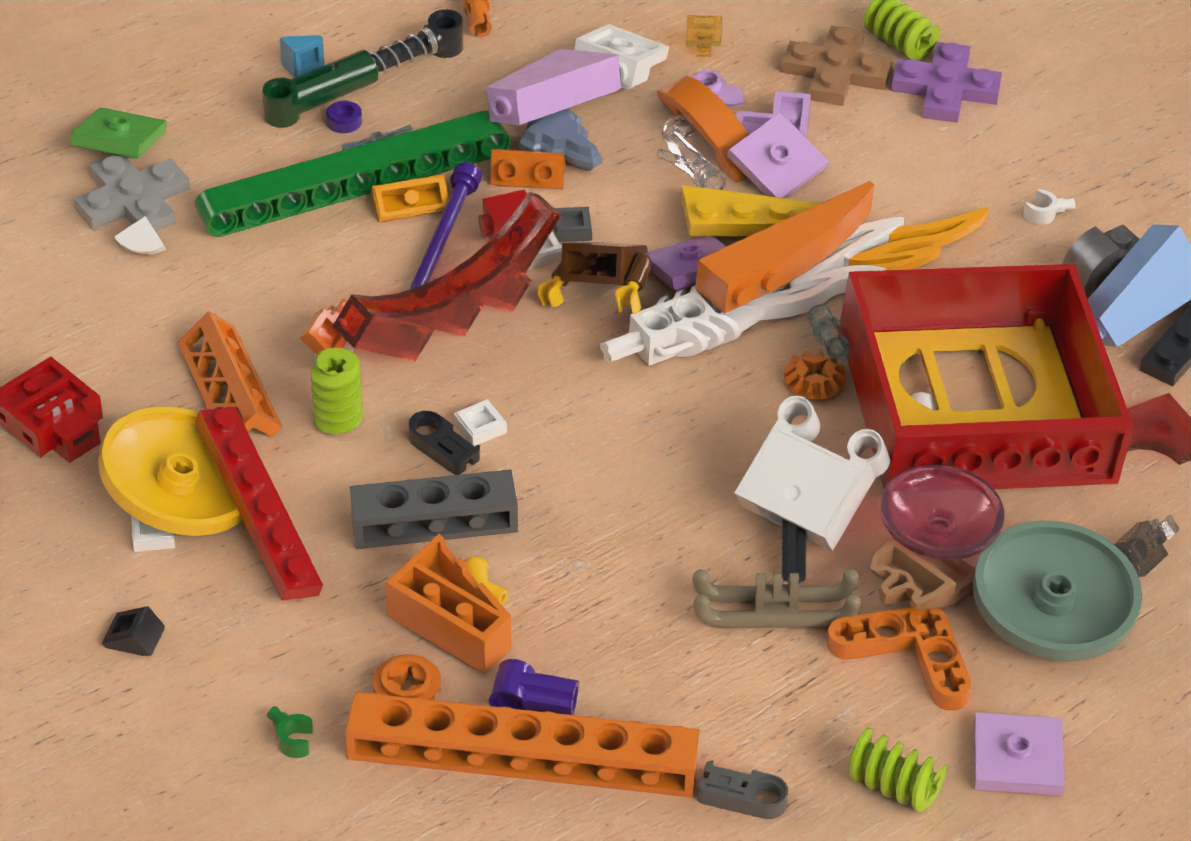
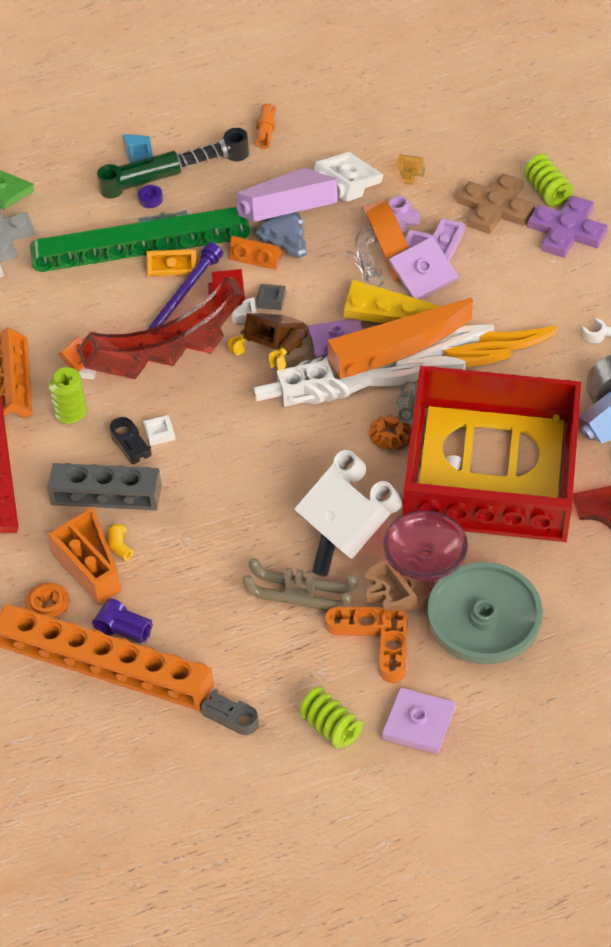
camera: 20 degrees right, 5 degrees up
(1145, 543) = (560, 590): clear smoke plate -> none

